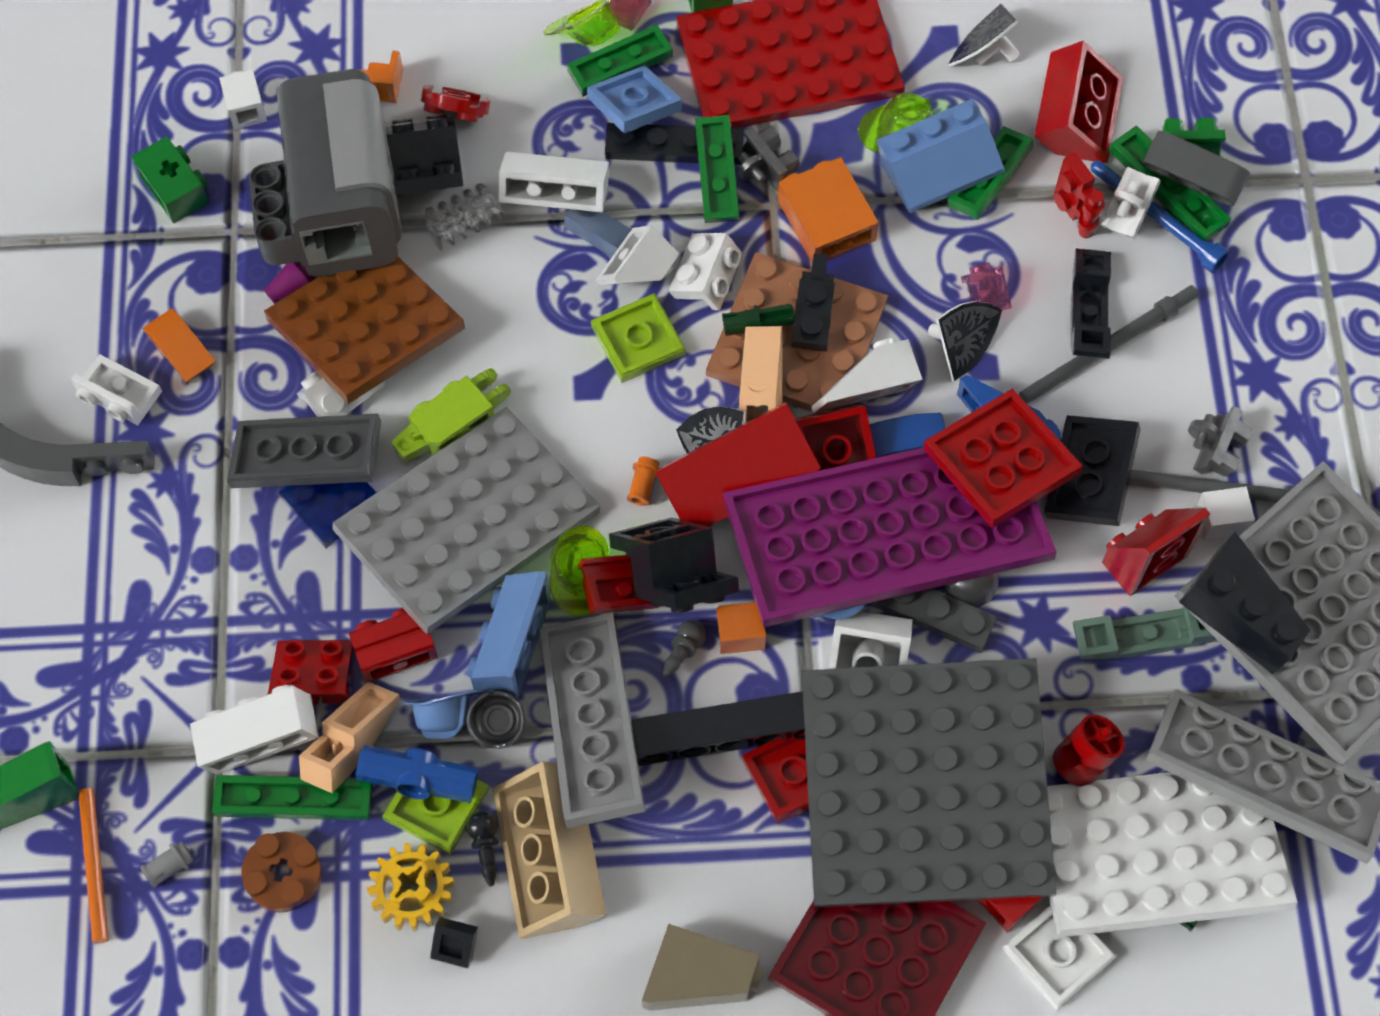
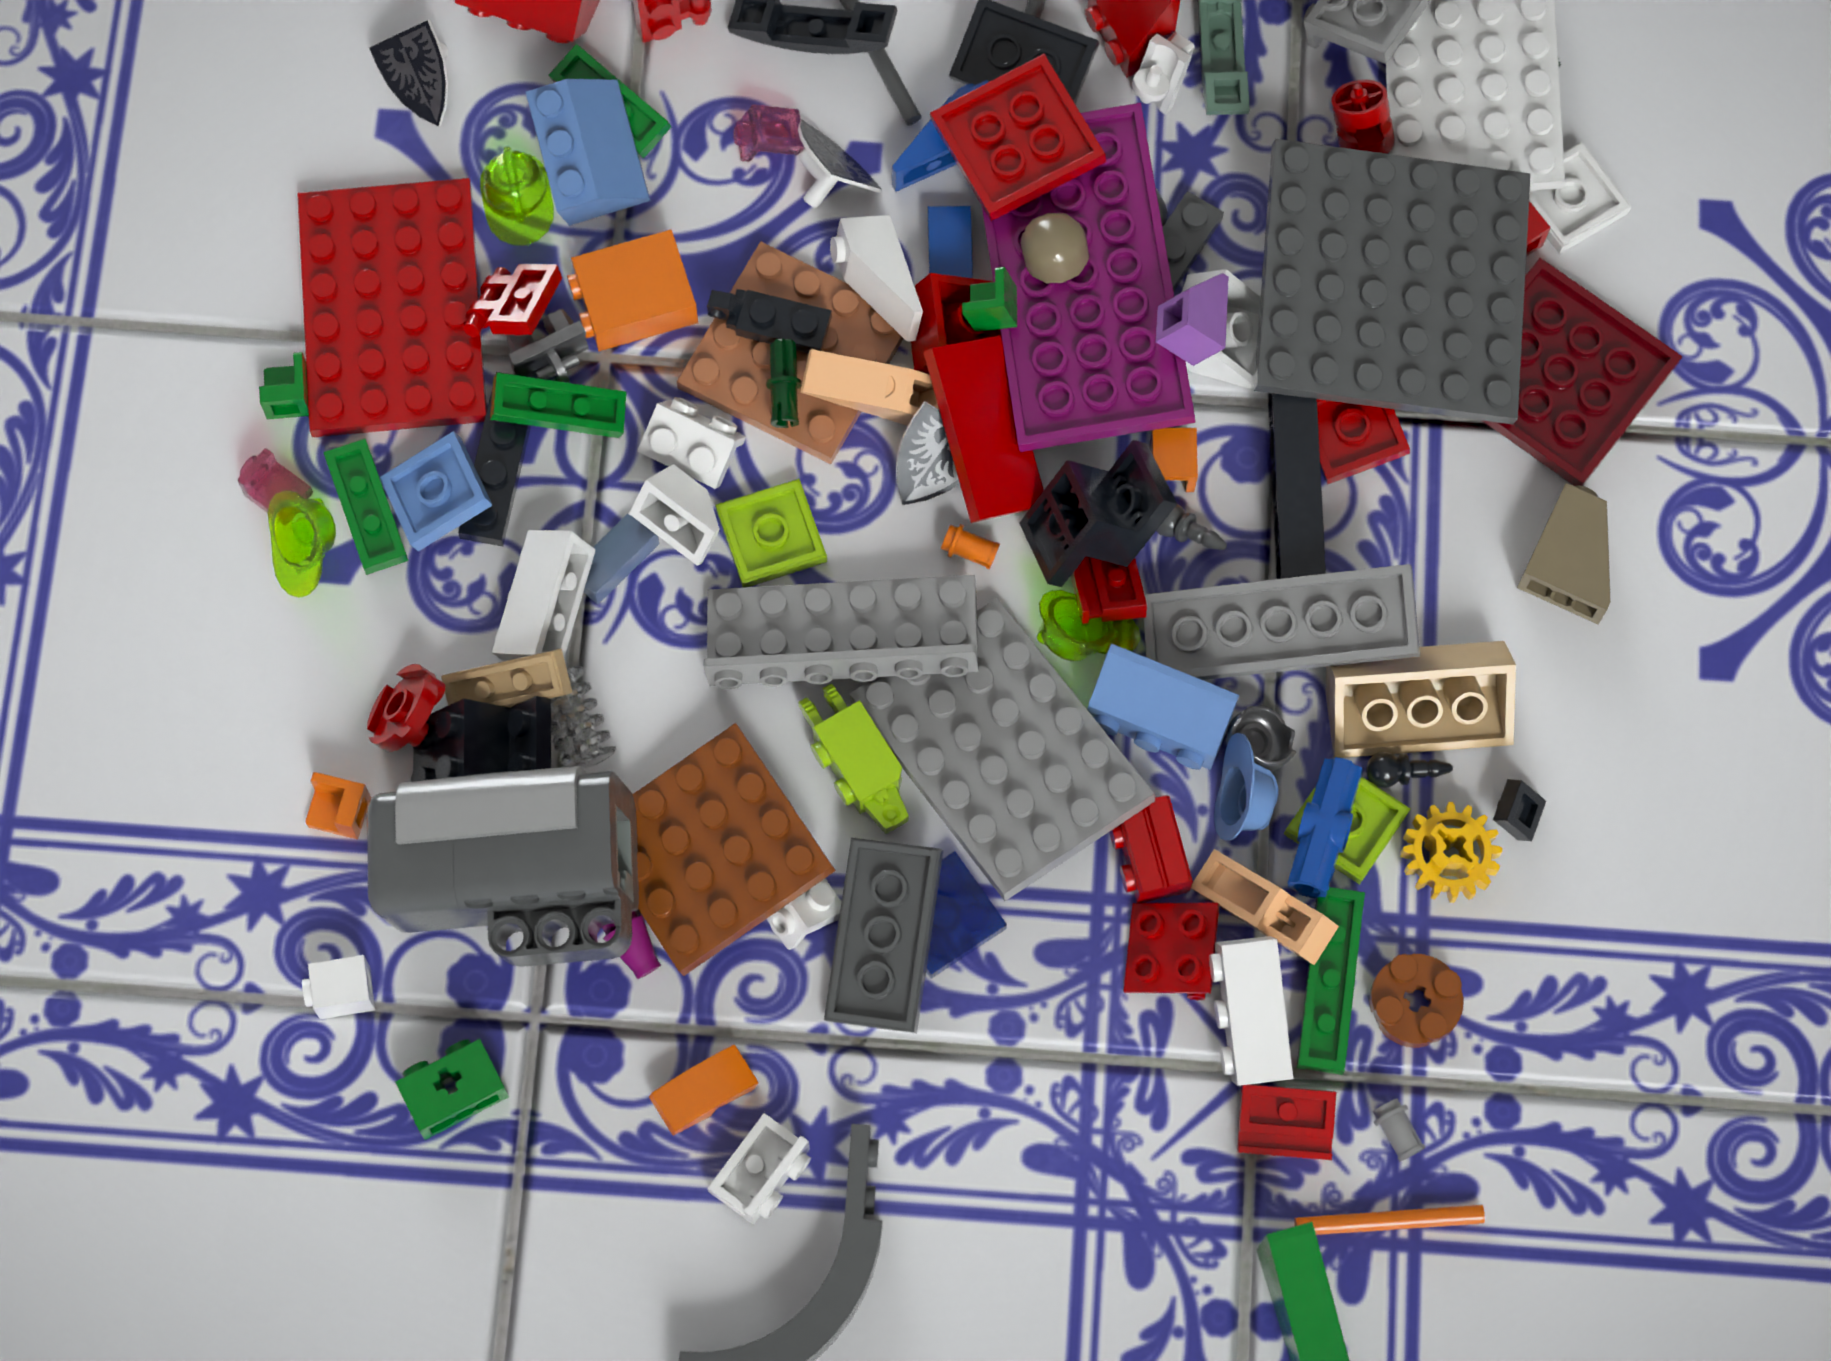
camera: 85 degrees left, 5 degrees up
(168, 774) = (1286, 1122): none -> red plate
(479, 162) = (511, 680): none -> tan tile
(554, 393) = (842, 631): none -> light grey bracket
(800, 126) = (514, 301): none -> red plate
(844, 457) = (992, 303): none -> green panel
(847, 606) = (1195, 321): none -> medium lavender slope
(903, 496) = (1054, 248): none -> dark tan hair
(1100, 578) = (1163, 70): none -> white hips

